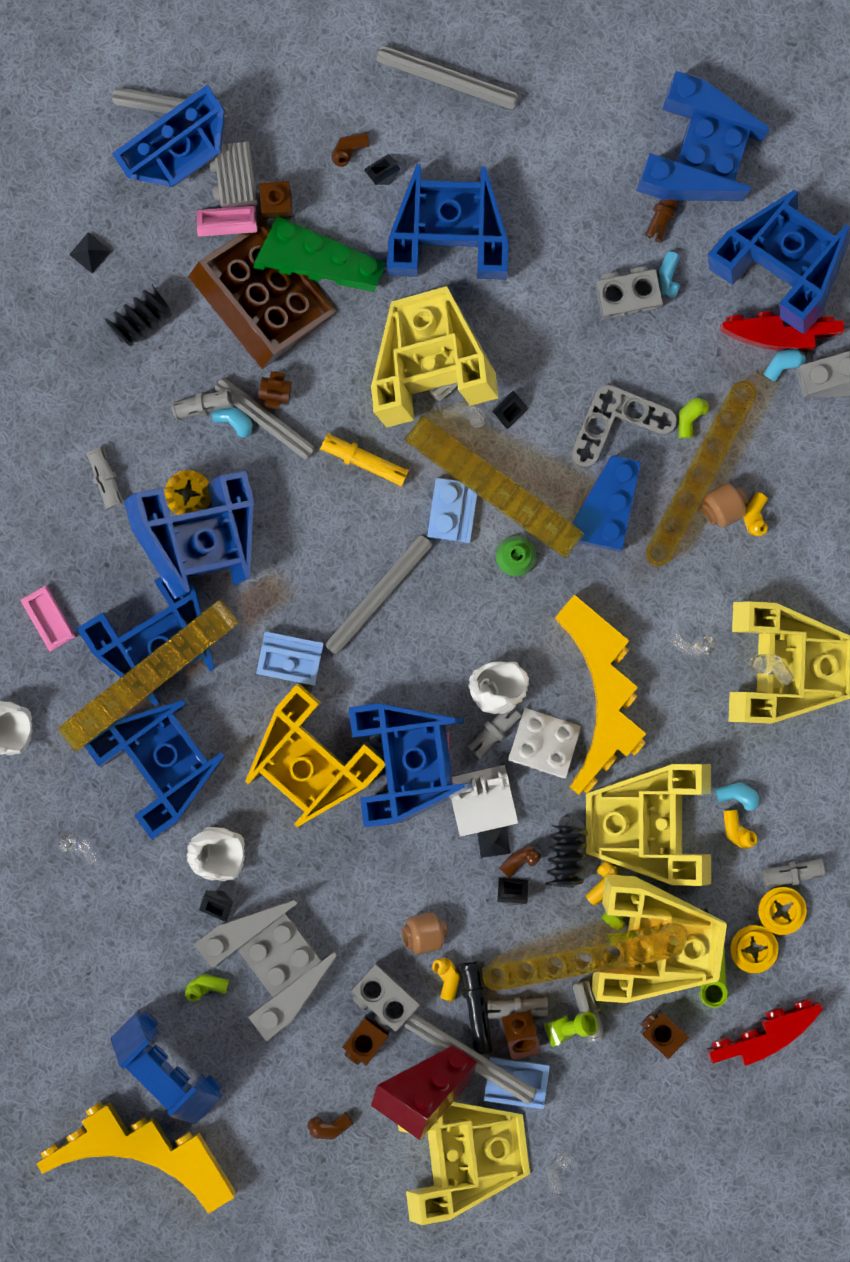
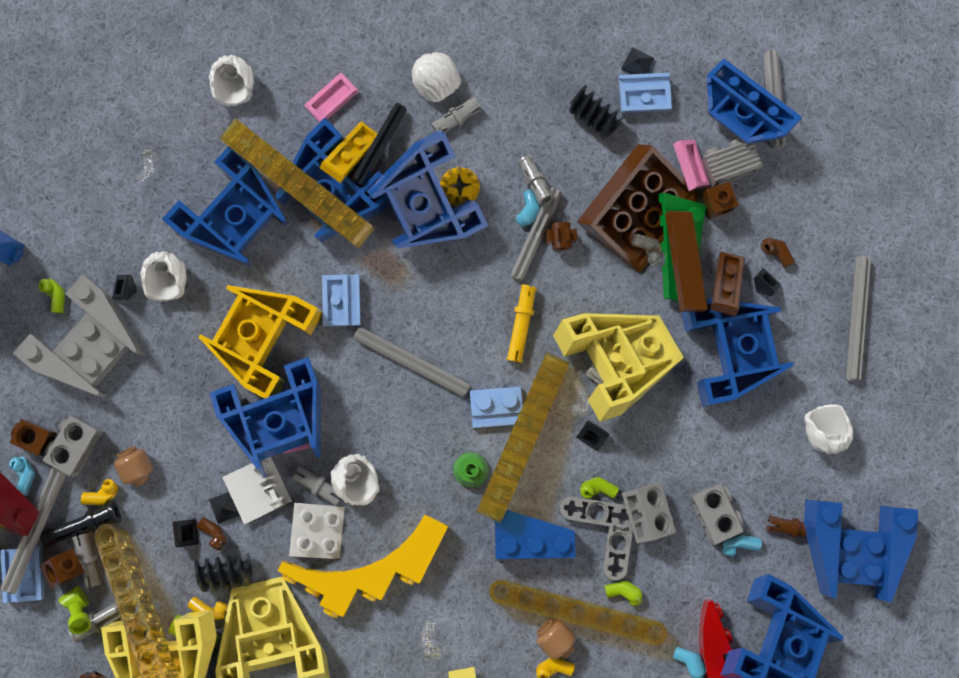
camera: 70 degrees right, 5 degrees down
(52, 491) = (435, 76): none -> white hair
(119, 573) = (379, 145): none -> black axle
(121, 608) = (349, 152): none -> yellow tile
(128, 253) = (644, 92): none -> light blue plate
(313, 290) = (651, 246): none -> clear arm
(340, 256) = (686, 261): none -> reddish brown tile
(375, 215) = (727, 283): none -> reddish brown tile
(400, 1059) = (24, 471): none -> medium azure arm
(564, 144) = (829, 429): none -> white hair
(567, 418) = (598, 485): none -> lime arm
(610, 368) = (649, 512): none -> light grey brick

